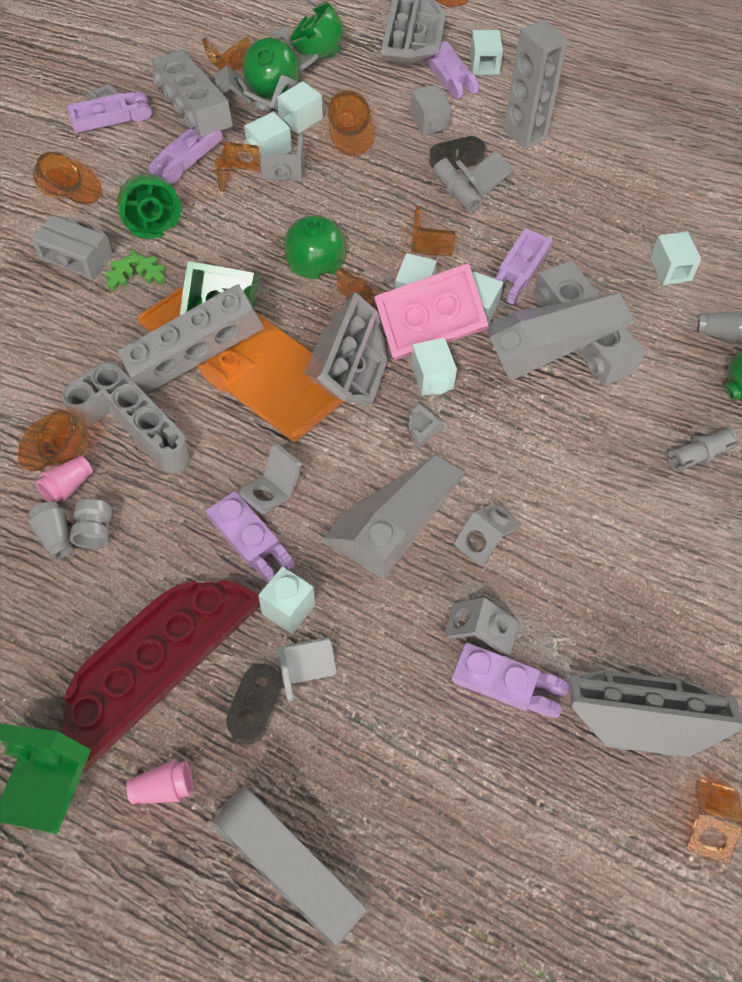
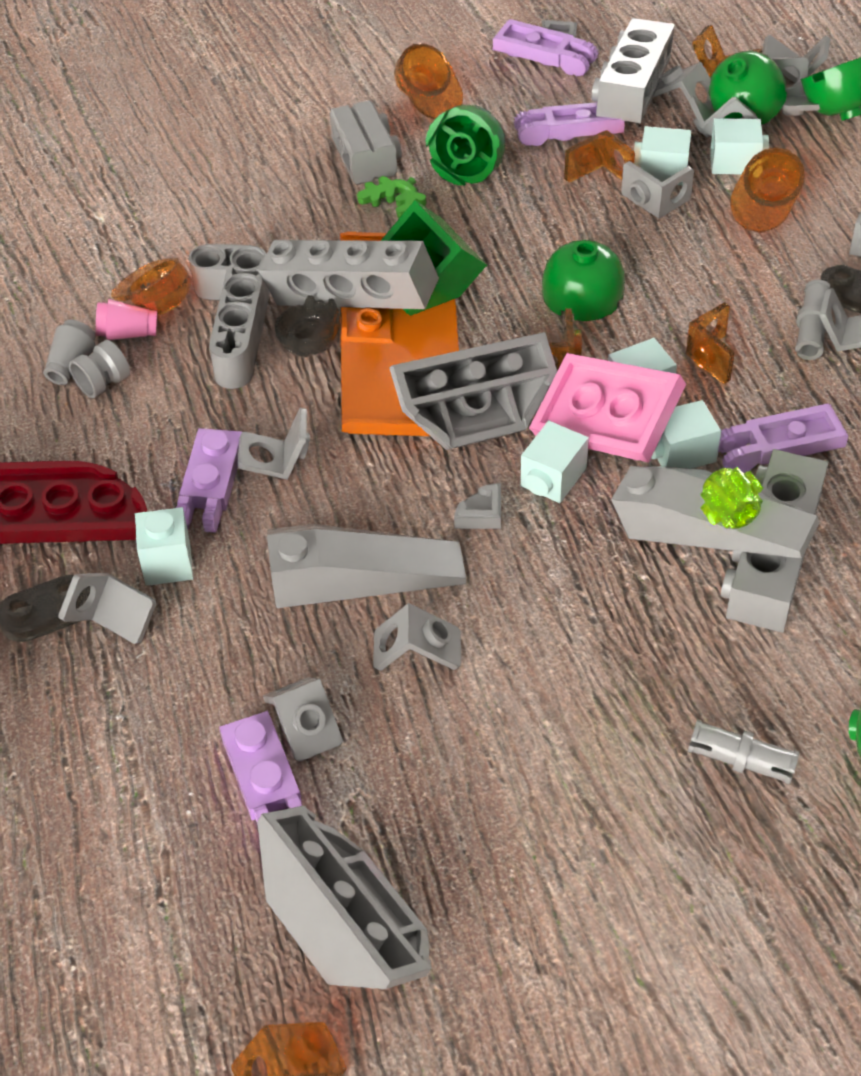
camera: 50 degrees right, 10 degrees down
(194, 391) = (308, 327): none -> clear smoke hair
(255, 34) = (775, 49): none -> light grey bracket
(583, 313) = (731, 498): none -> clear neon green gear

